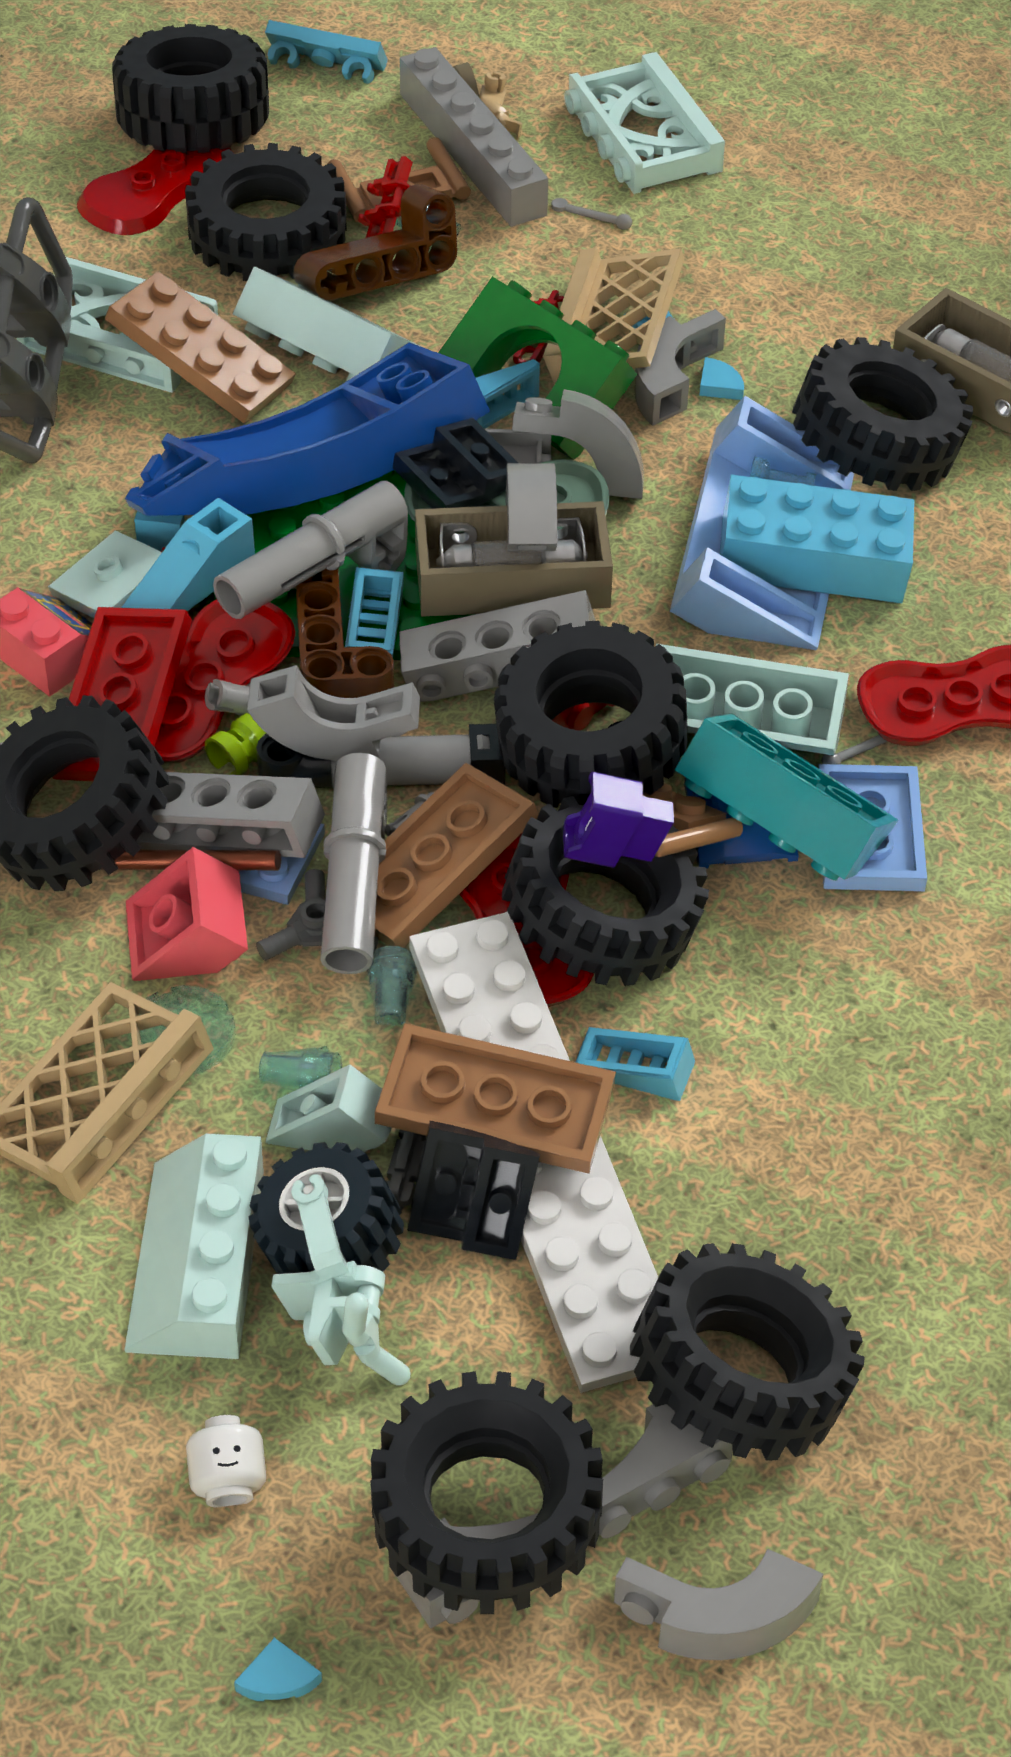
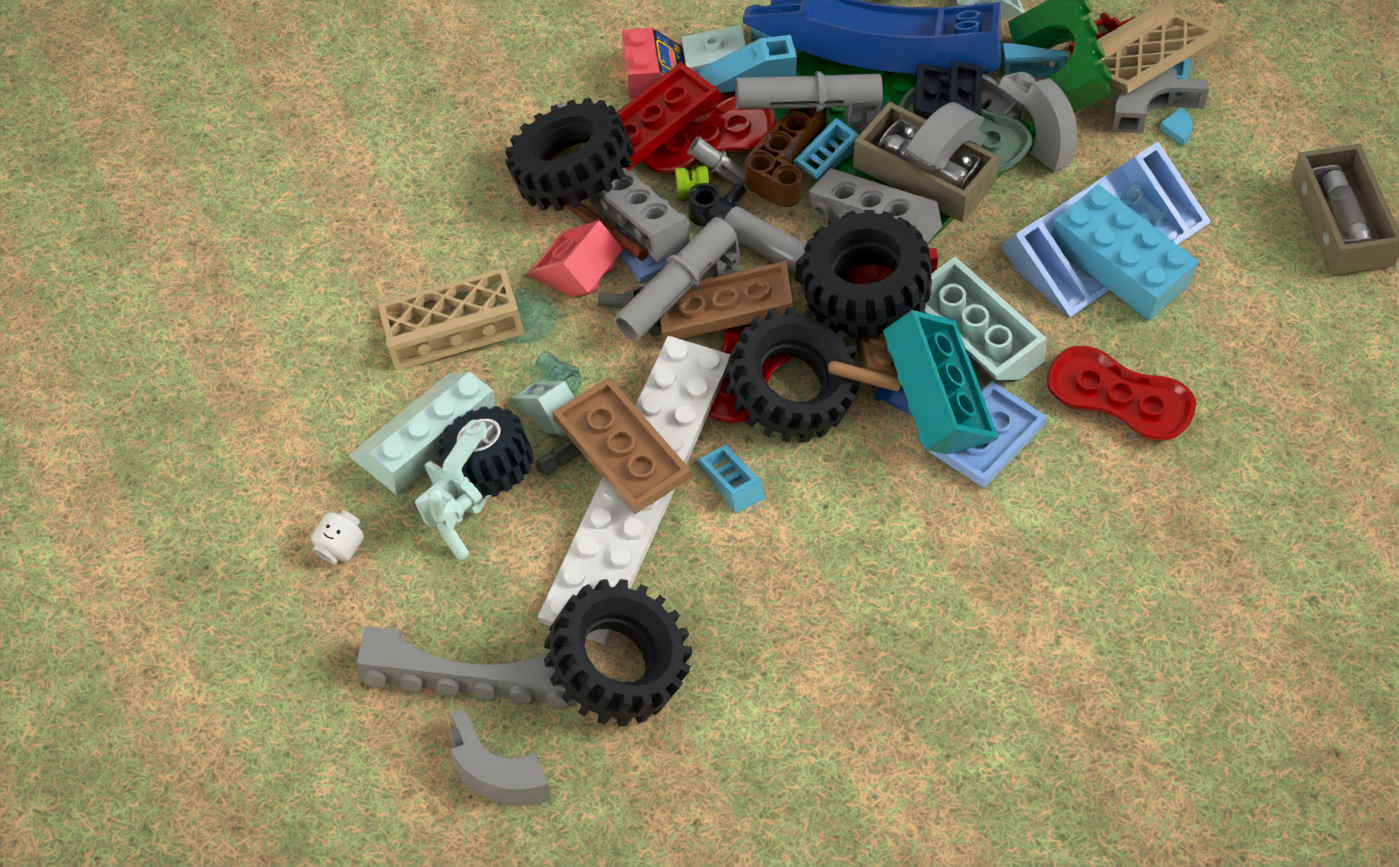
camera: 40 degrees right, 5 degrees up
(277, 1675) = (270, 651): medium azure tile -> none
(326, 724) = (728, 193): light grey arch -> none
(391, 984) = (643, 357): clear light blue cone -> none
(473, 1190) = (571, 484): black slope -> none
(495, 1424) = (412, 590): black tyre -> none
(616, 823) = (808, 337): dark purple piece -> none
(853, 751) = (1009, 385): light grey hinge -> none
(875, 443) = (1219, 221): black tyre -> none

